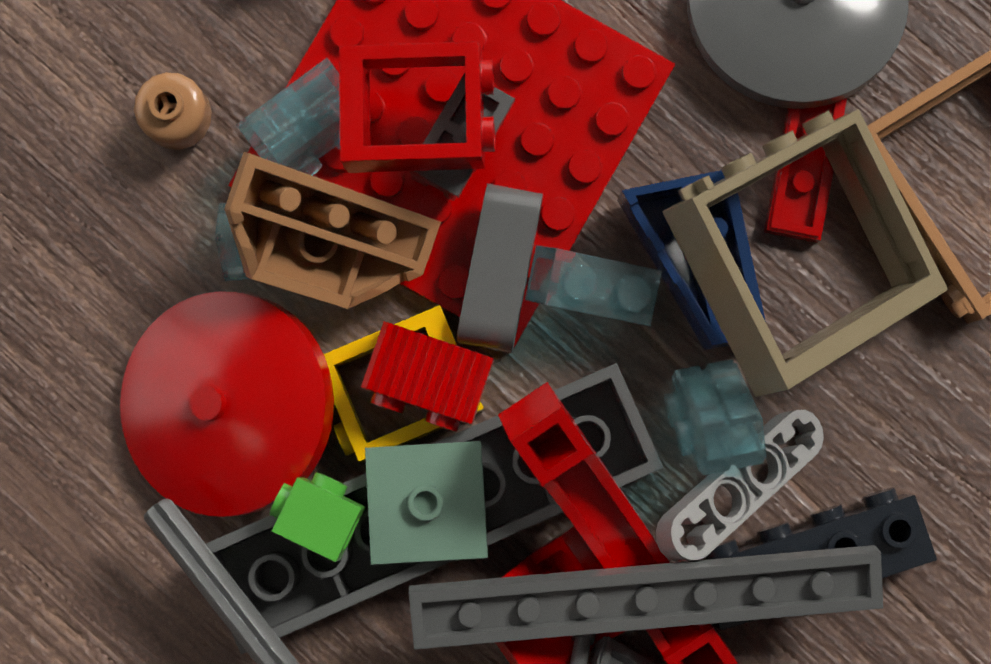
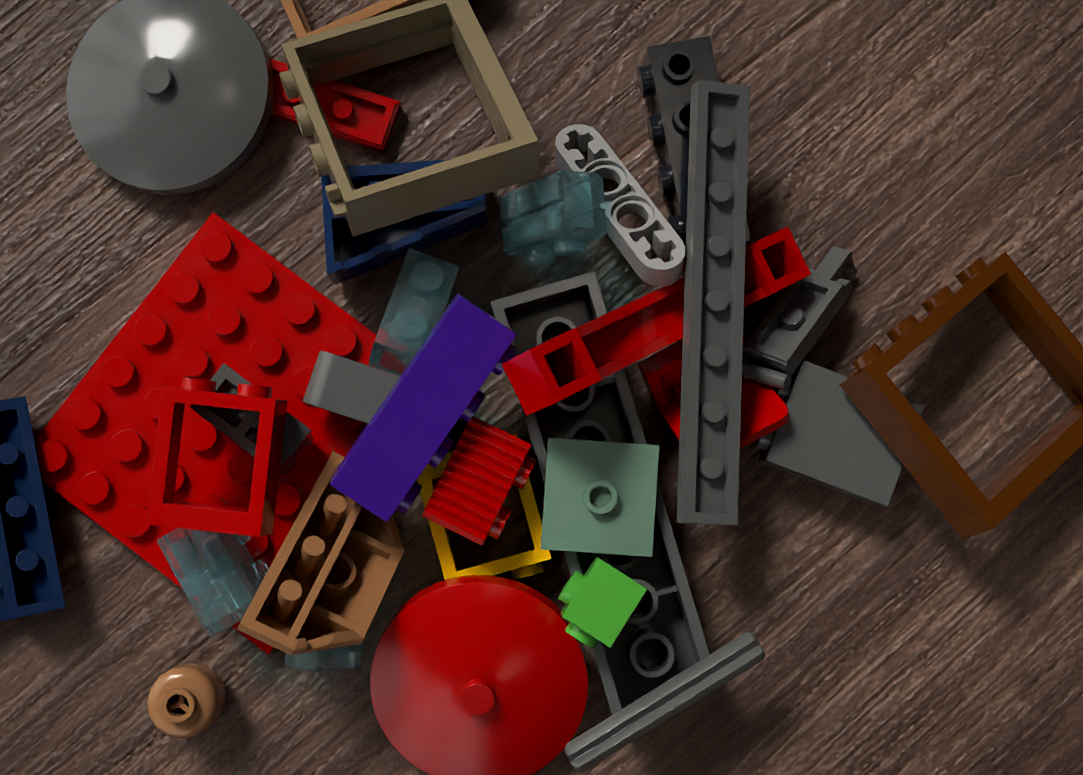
camera: 90 degrees left, 0 degrees up
(494, 308) = (423, 408): none -> dark purple brick

